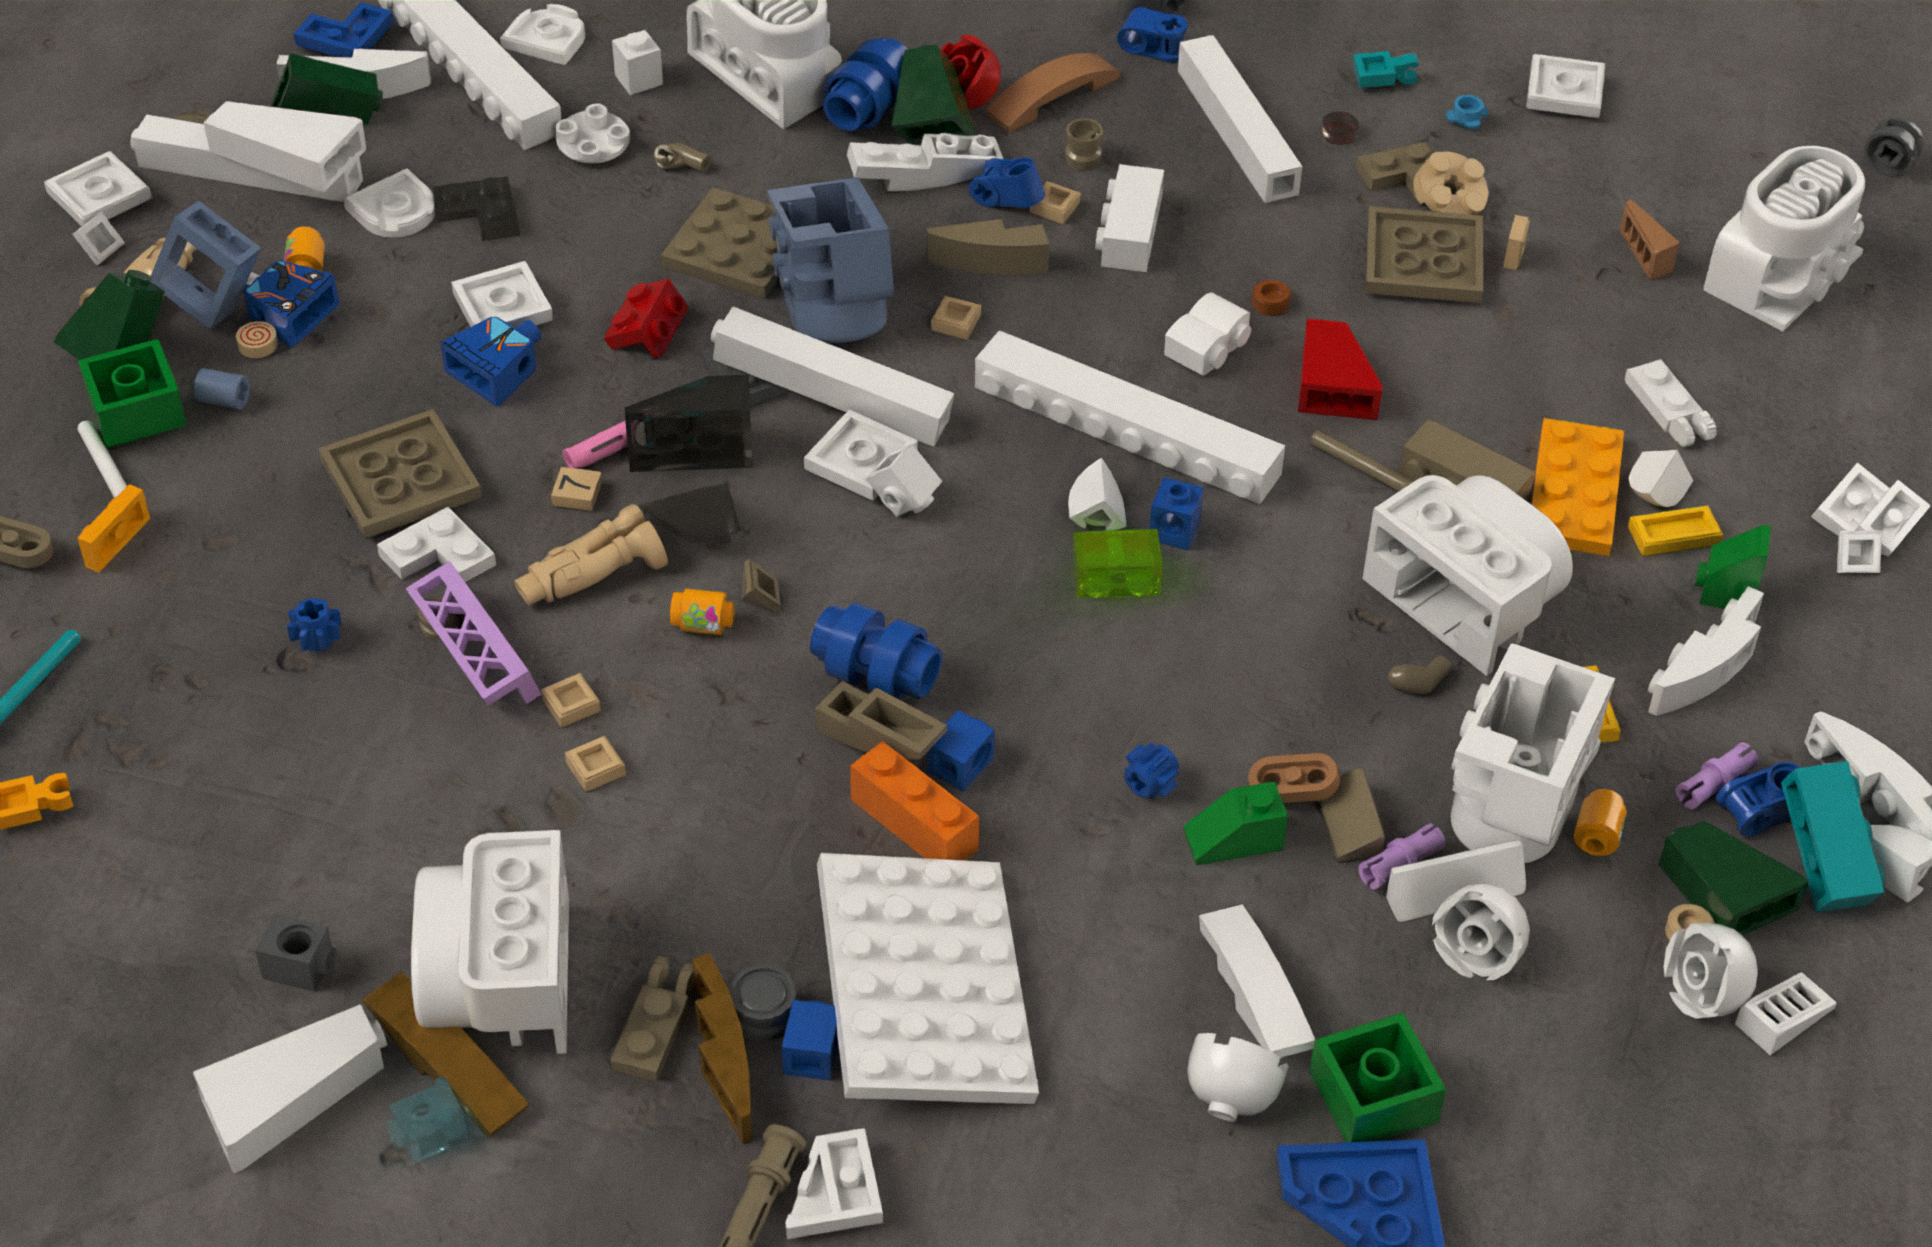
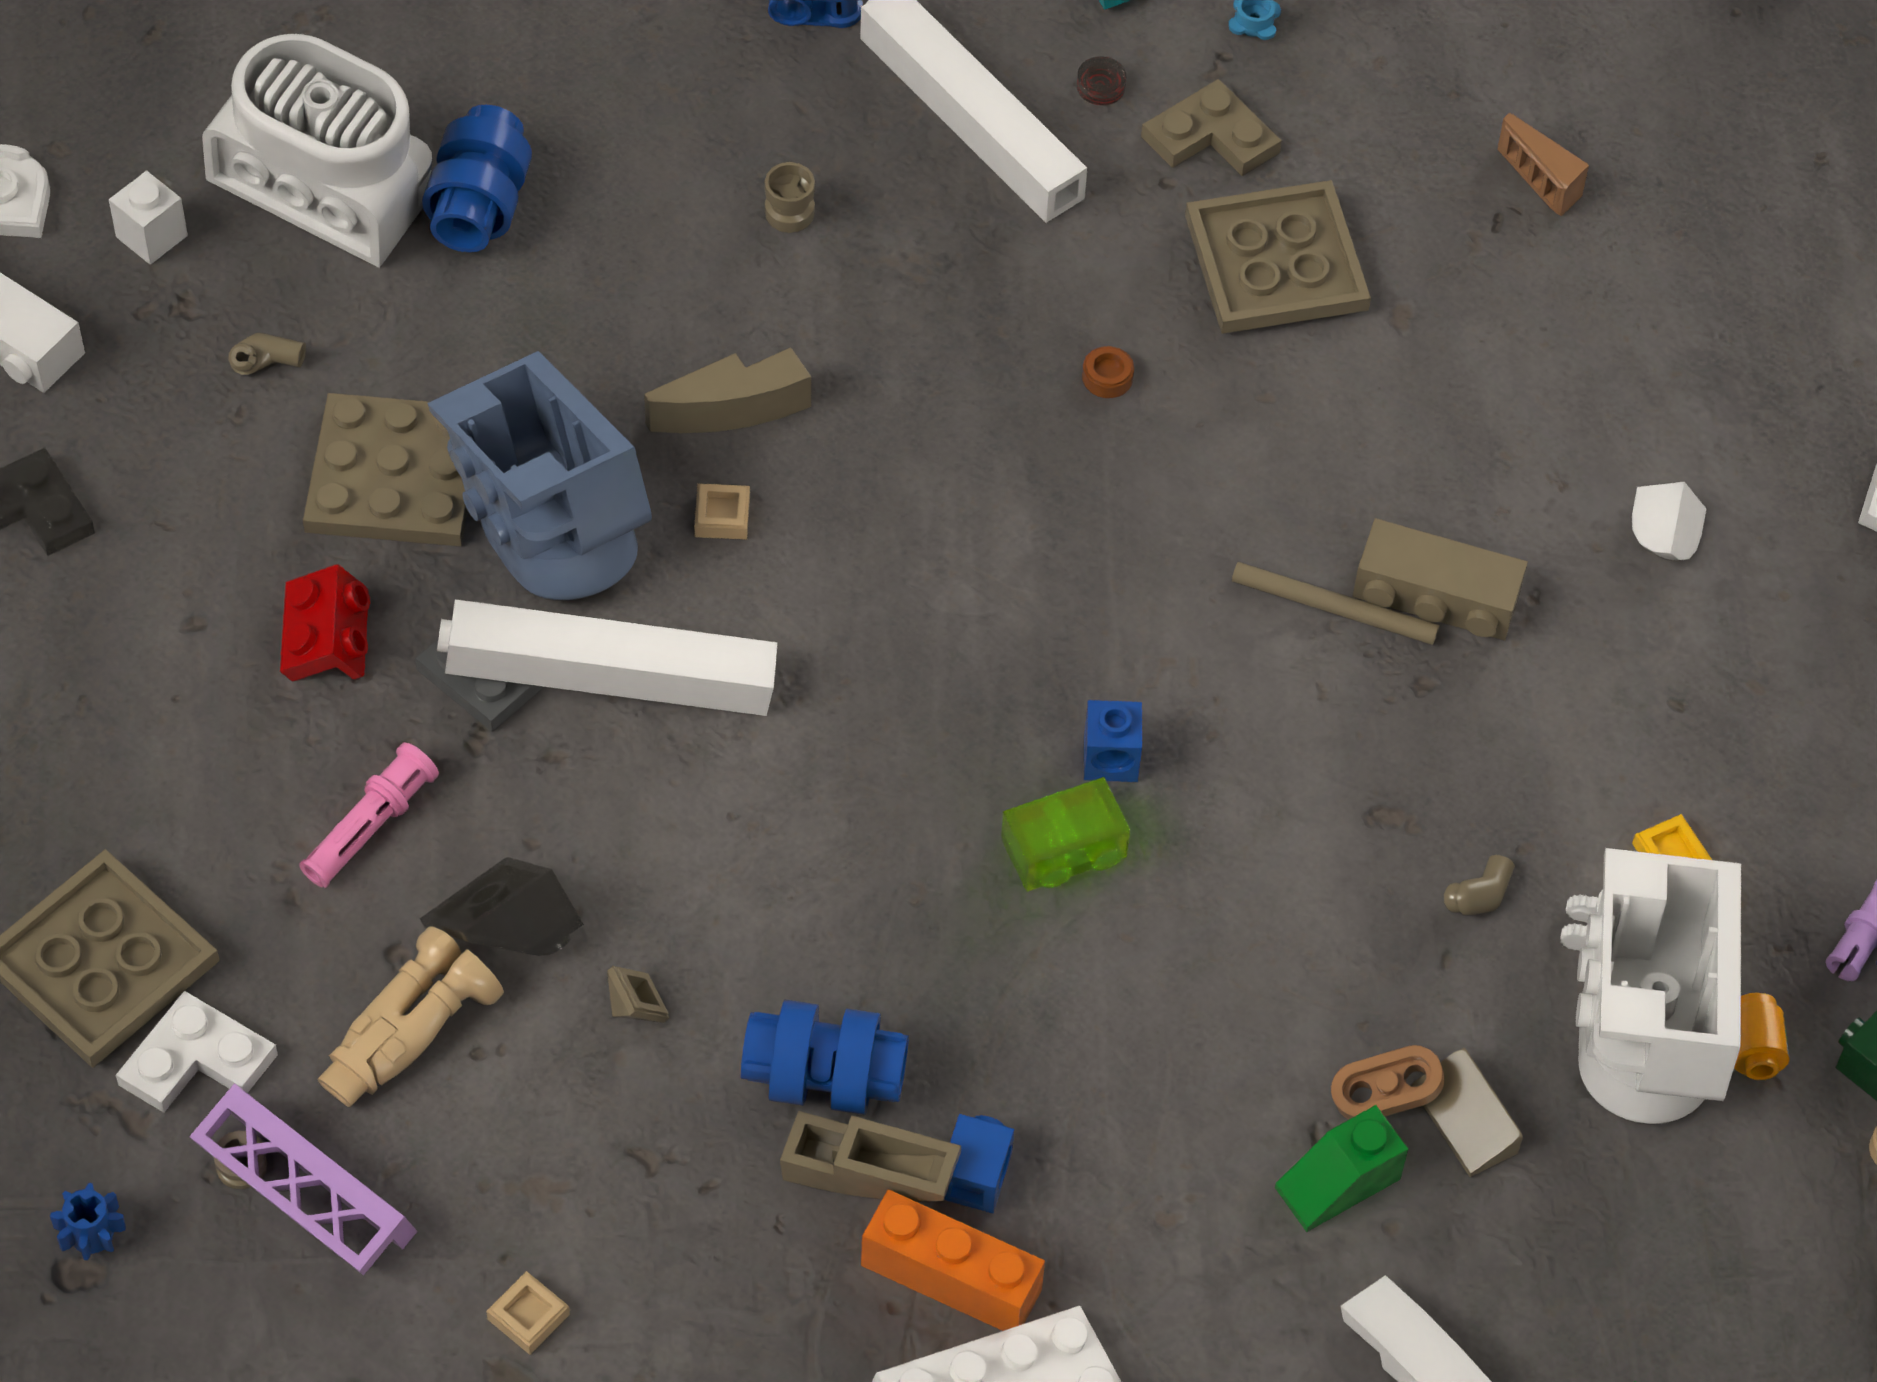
camera: 20 degrees left, 10 degrees up
(492, 357) = (147, 744): blue torso -> none
(503, 293) = (121, 651): white plate -> none
(570, 700) = (459, 1230): tan tile -> none
(576, 488) = (338, 913): tan tile -> none
(592, 135) = (132, 350): white dish -> none
(692, 427) = (468, 787): clear smoke slope -> none
(701, 611) = (578, 1055): light orange brick -> none
(853, 451) = (685, 760): white plate -> none
(904, 481) = (760, 789): white brick -> none
(930, 97) = (571, 182): dark green slope -> none
(936, 163) = (603, 279): white slope -> none
(976, 69) = (598, 129): red cylinder -> none
(1008, 184) = (720, 286): blue piece -> none
(1021, 100) = (706, 112): medium nougat slope -> none
(1057, 203) = (781, 295): tan tile -> none
(1097, 499) = (1003, 742): white brick -> none
(1129, 417) = (998, 609): white brick -> none
(1130, 218) = (892, 298): white brick -> none
(1151, 771) = (1216, 1124): blue gear -> none
(1207, 334) = (1054, 454): white brick -> none
(1337, 373) = (1231, 471): red slope -> none
(1400, 853) = (1546, 1151): lavender pin -> none
(1423, 886) = (1621, 1168): white slope -> none
(1462, 173) = (1291, 125): tan plate -> none
(1467, 562) = (1499, 726): white brick -> none
(1481, 931) = (1677, 1232): white cylinder -> none
(1516, 242) = (1385, 209): tan tile -> none
(1579, 482) = (1576, 557): light orange plate -> none
(1670, 403) = (1644, 401): white hinge -> none
(1675, 530) = (1708, 589): yellow tile -> none
(1708, 659) = (1808, 765): white slope -> none
(1733, 567) = (1804, 637): green slope -> none
(1790, 235) = (1723, 125): white brick -> none

